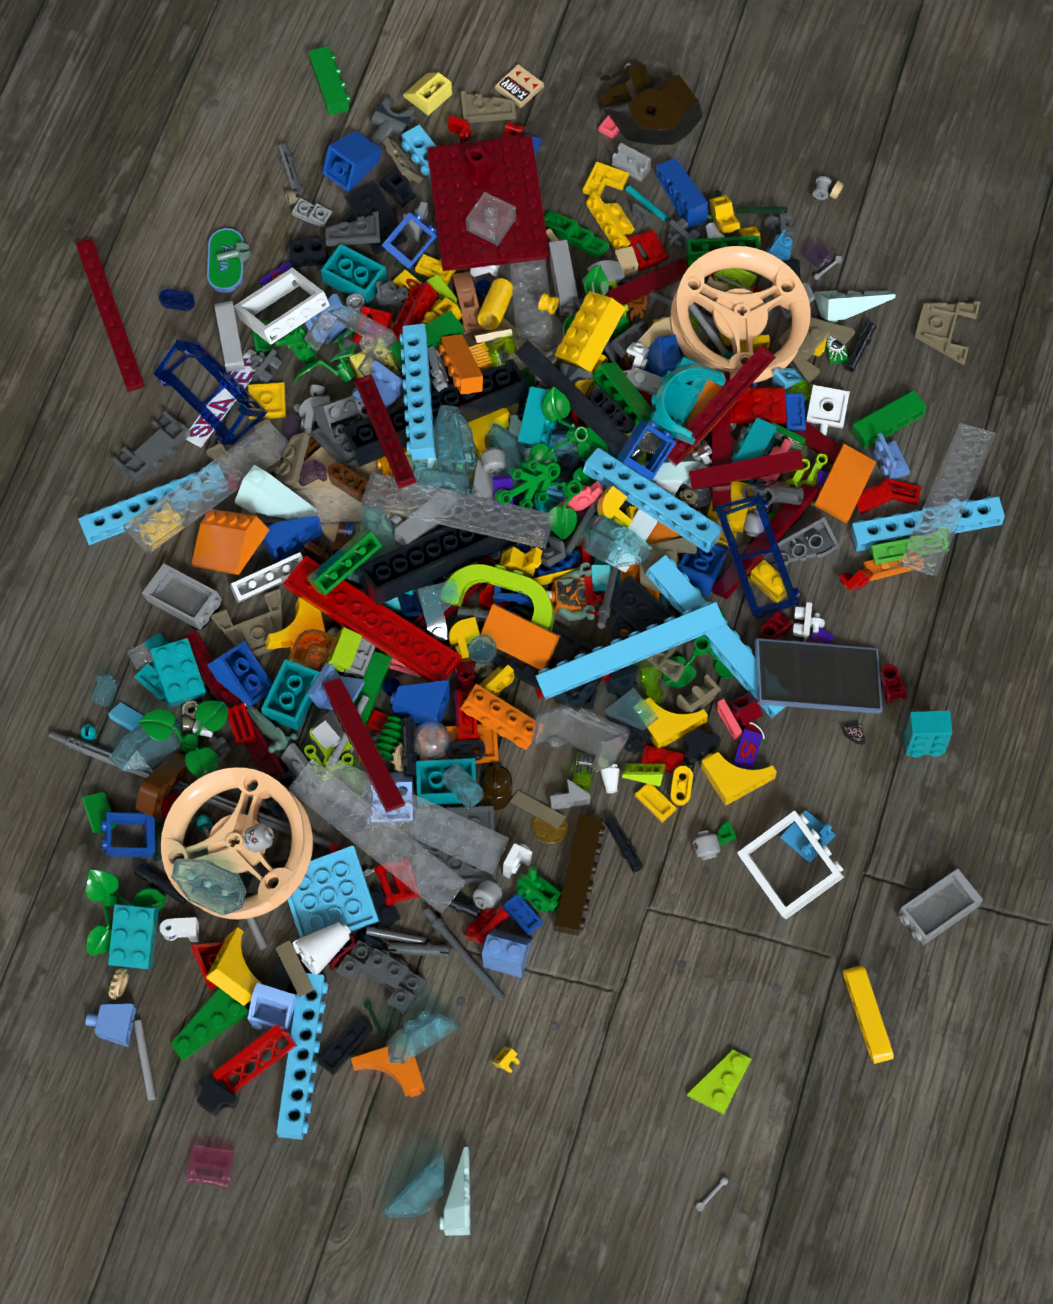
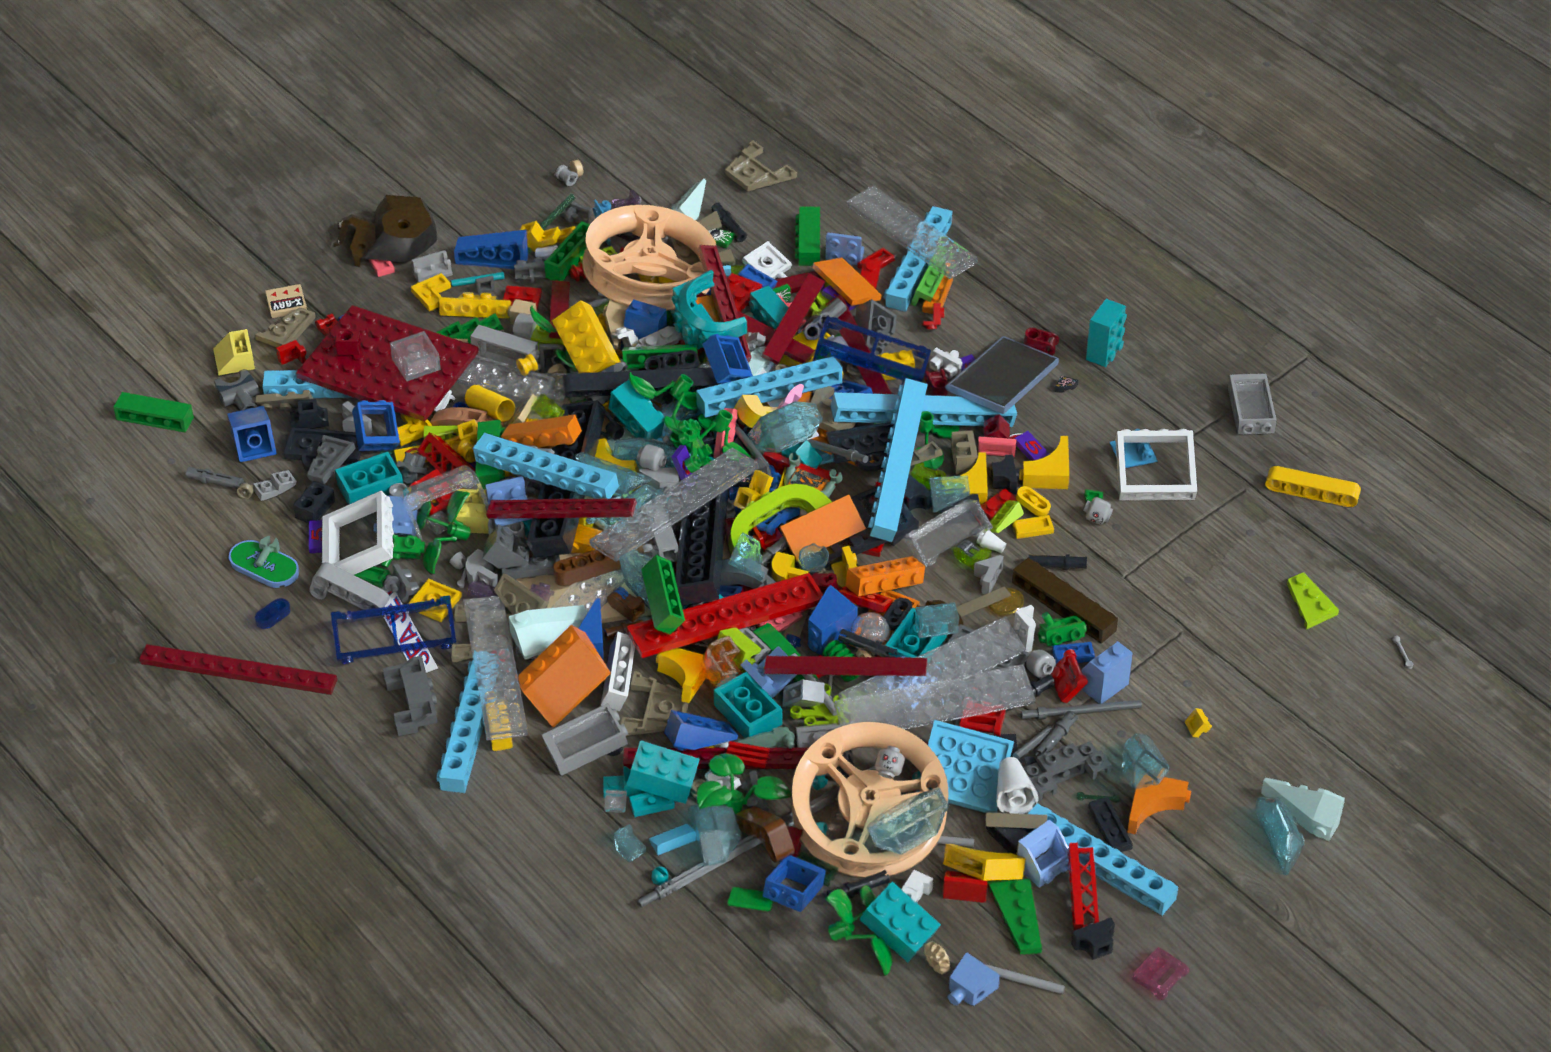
camera: 60 degrees left, 20 degrees down
(648, 525) = (793, 395): none -> bright pink slope

